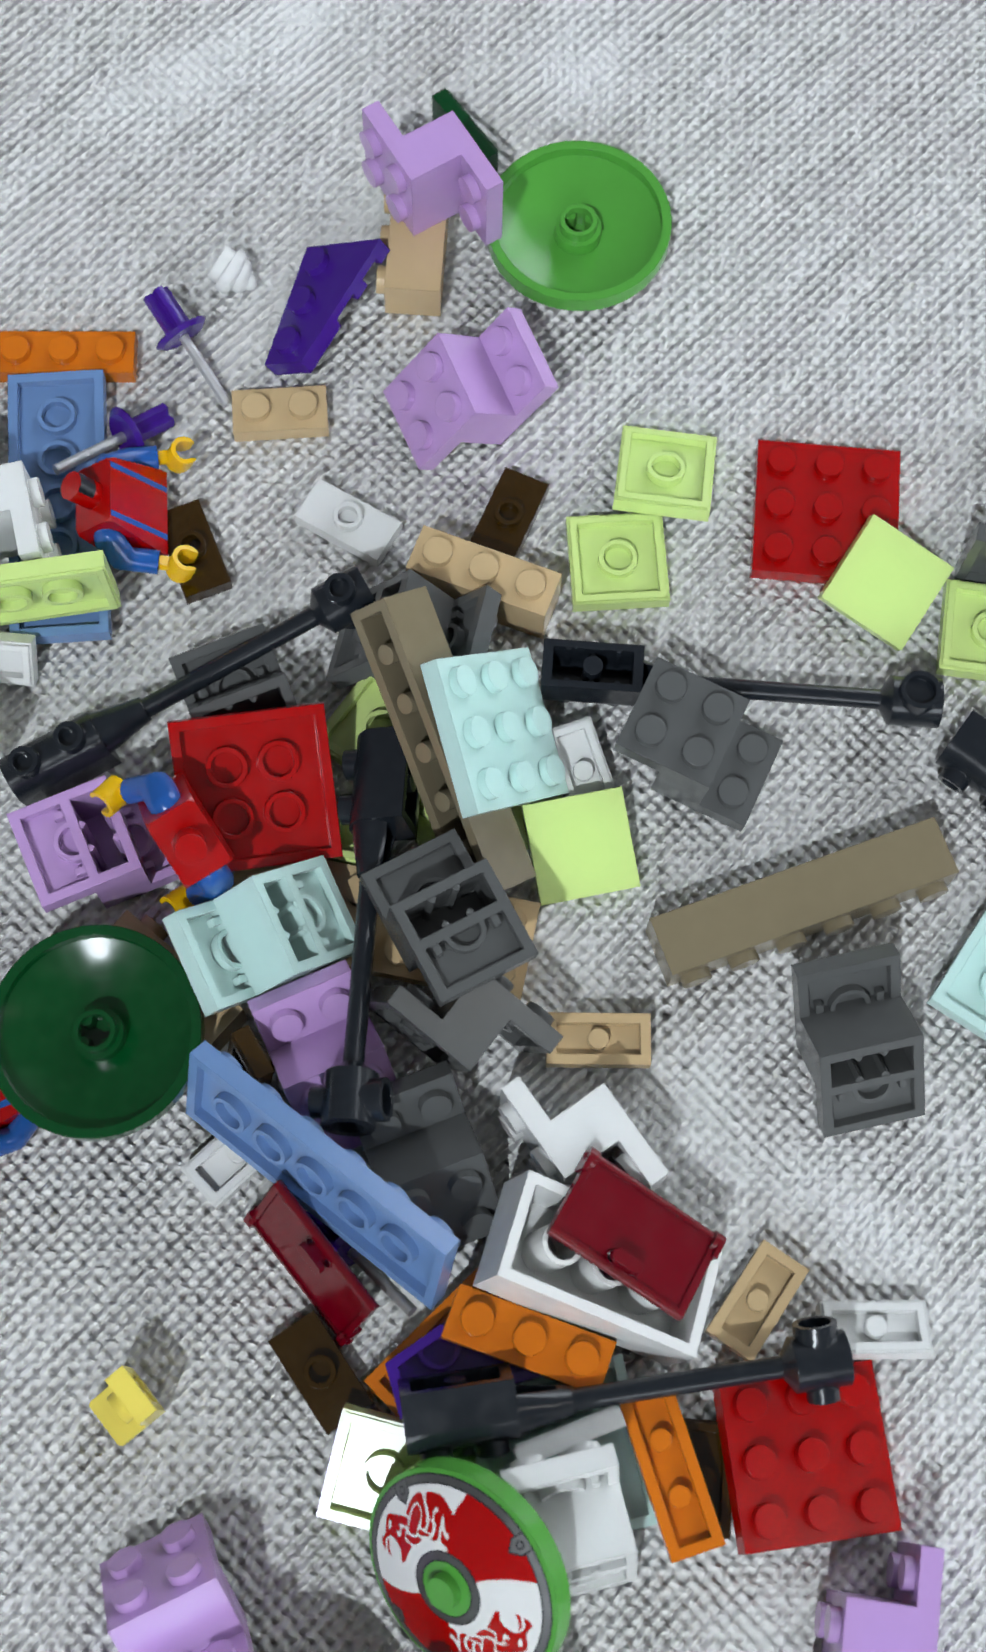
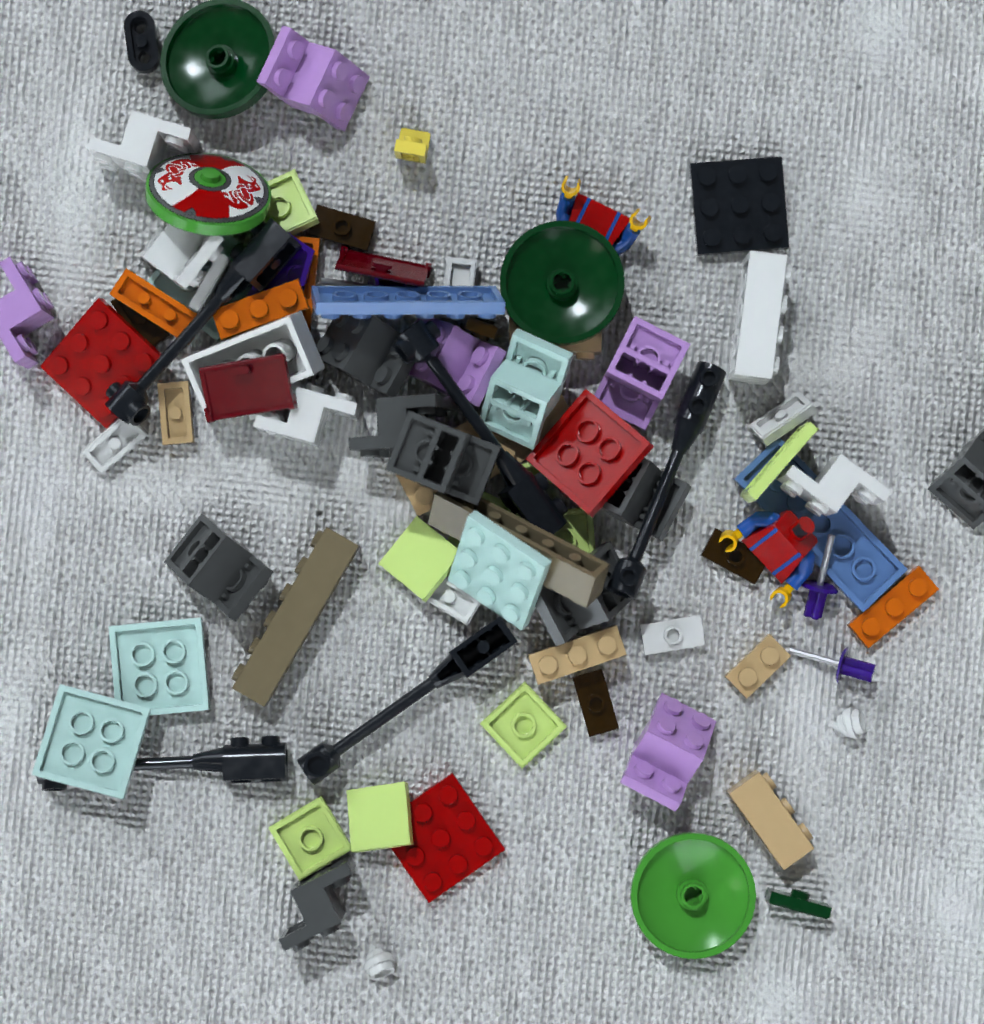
camera: 140 degrees right, 15 degrees up
(180, 830) = (602, 399): torso -> none
(320, 292) = (790, 742): dark purple wing -> none
(432, 173) = (781, 845): lavender bracket -> none
(601, 1040) = (338, 474): tan plate -> none
(665, 473) = (537, 791): yellowish green tile -> none
(698, 744) = (403, 652): dark grey bracket -> none

